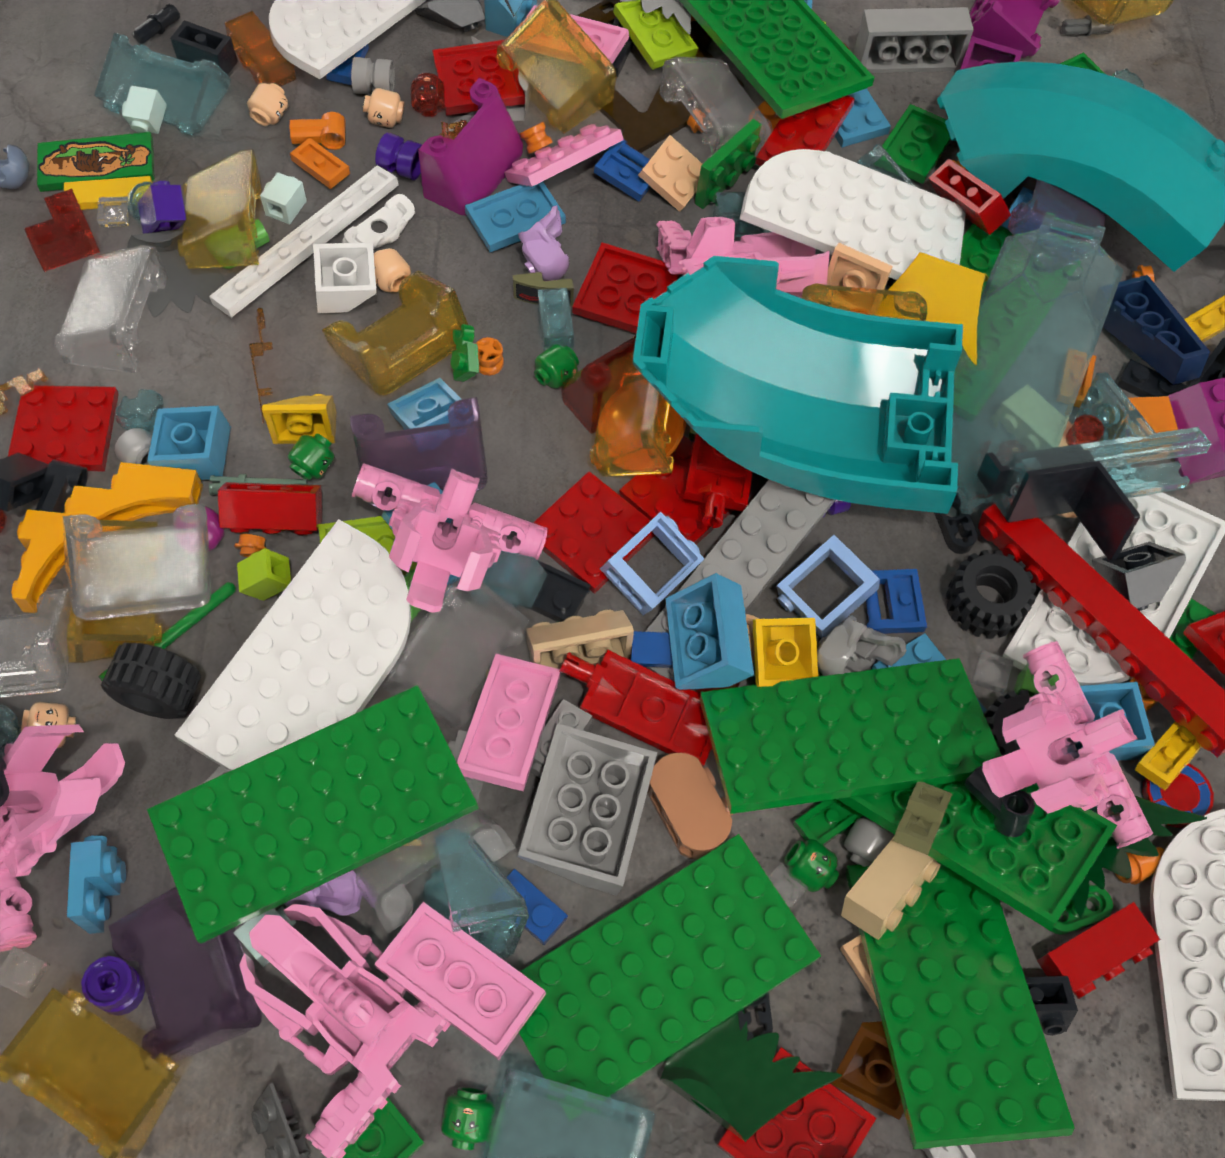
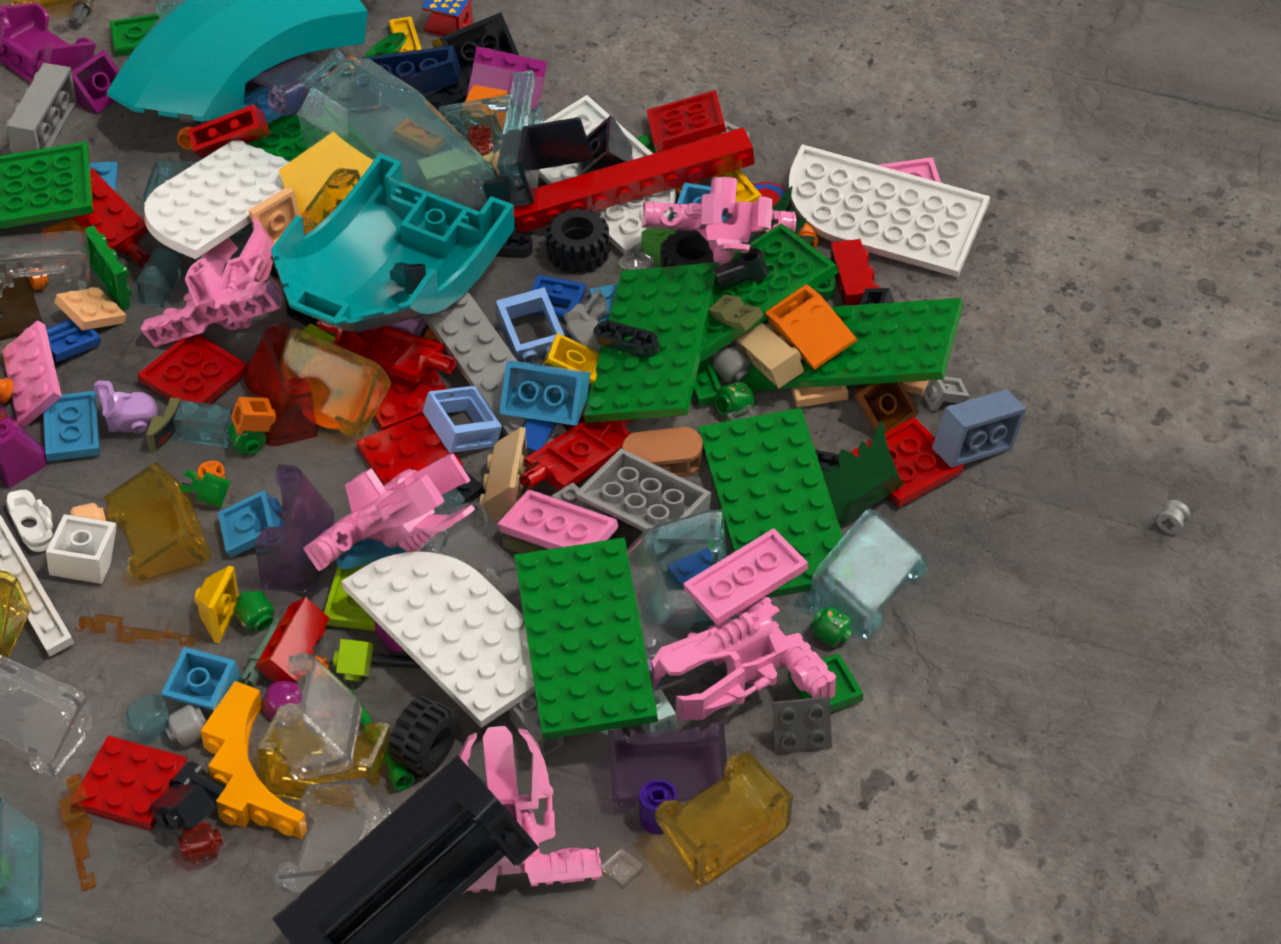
camera: 65 degrees left, 15 degrees down
(92, 876) = (578, 803): dark azure plate -> none
(559, 346) = (253, 415): none -> orange brick
(808, 429) = (408, 275): none -> black piece
(821, 709) = (641, 344): none -> black beam
(917, 142) = (140, 147): green plate -> none
(942, 925) = (810, 326): none -> orange slope
(1189, 300) = (388, 45): none -> green dish

